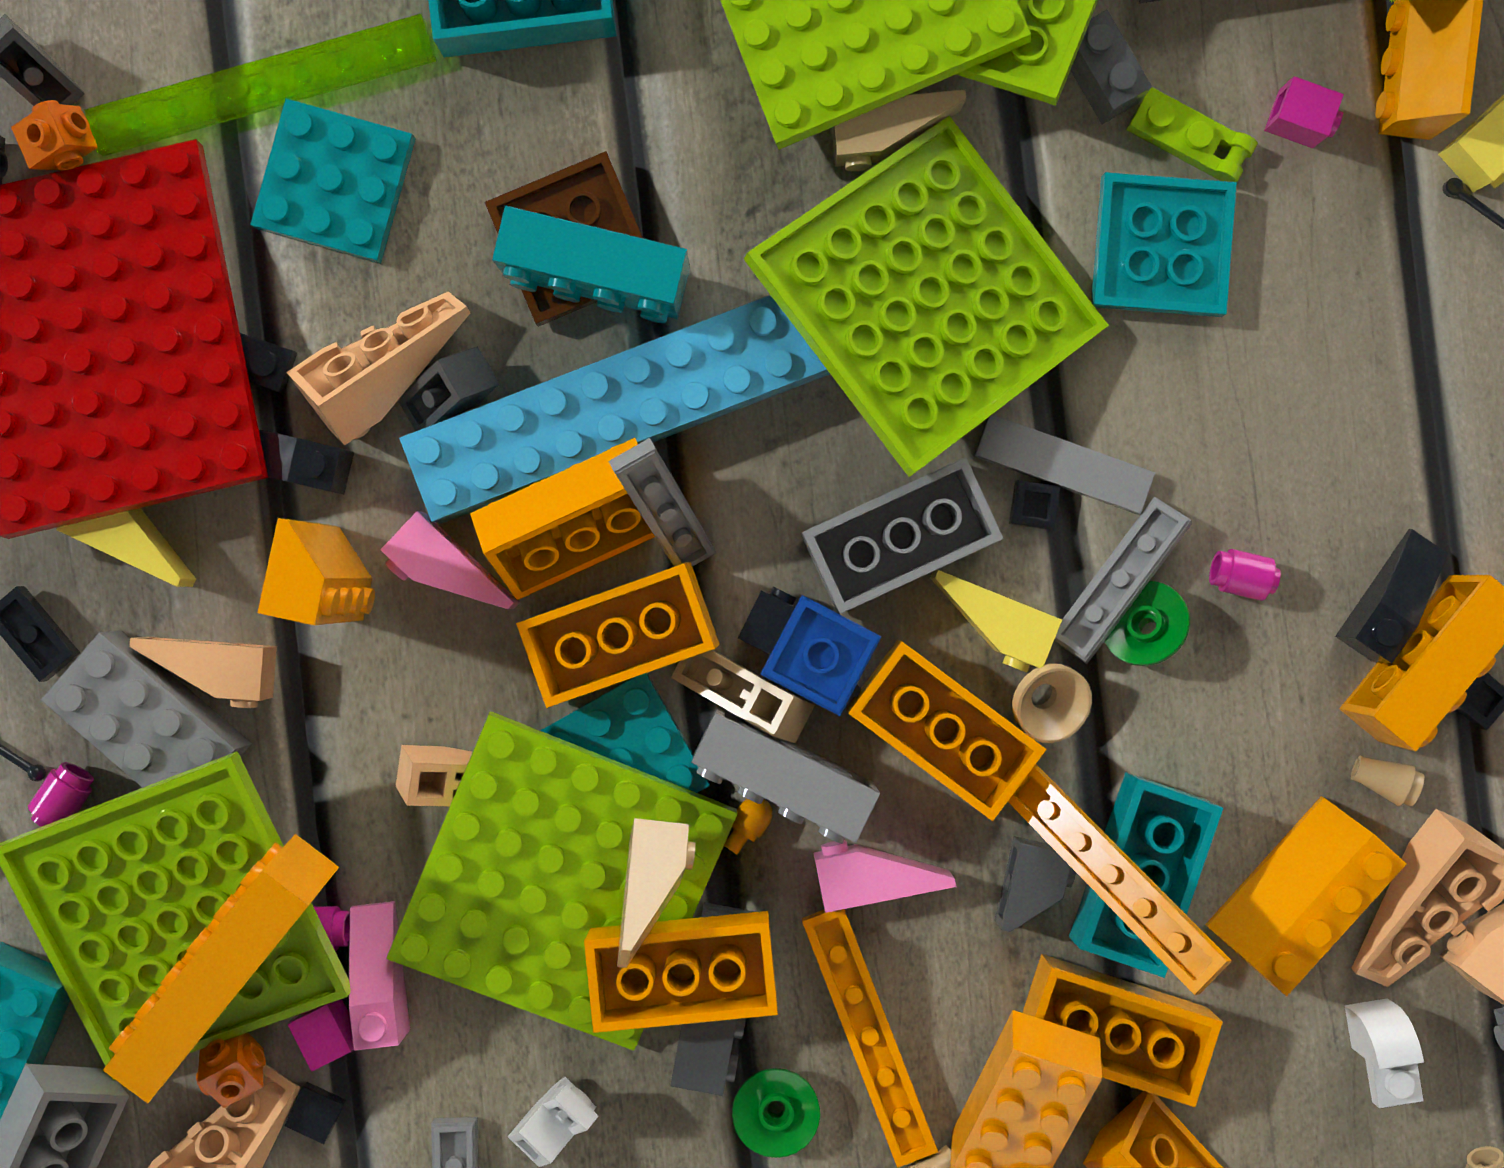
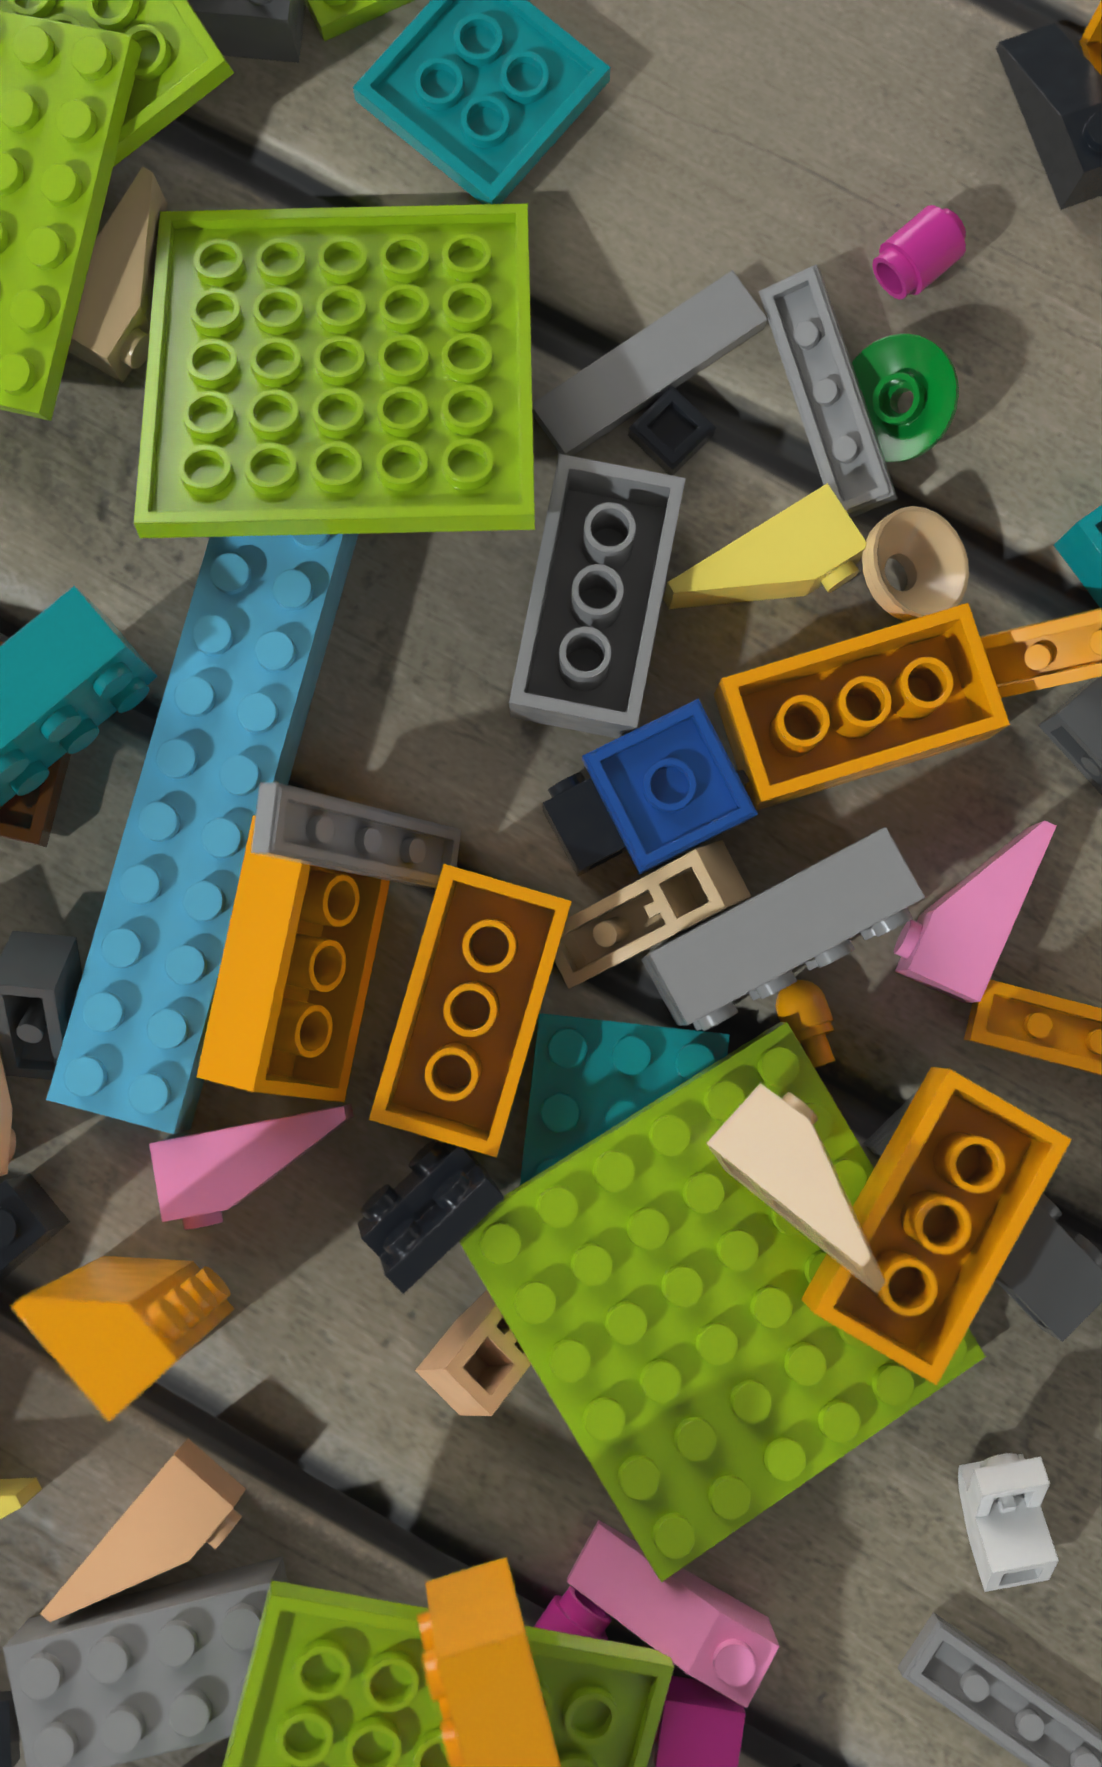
camera: 60 degrees left, 5 degrees down
(490, 691) = (427, 1211): none -> black plate

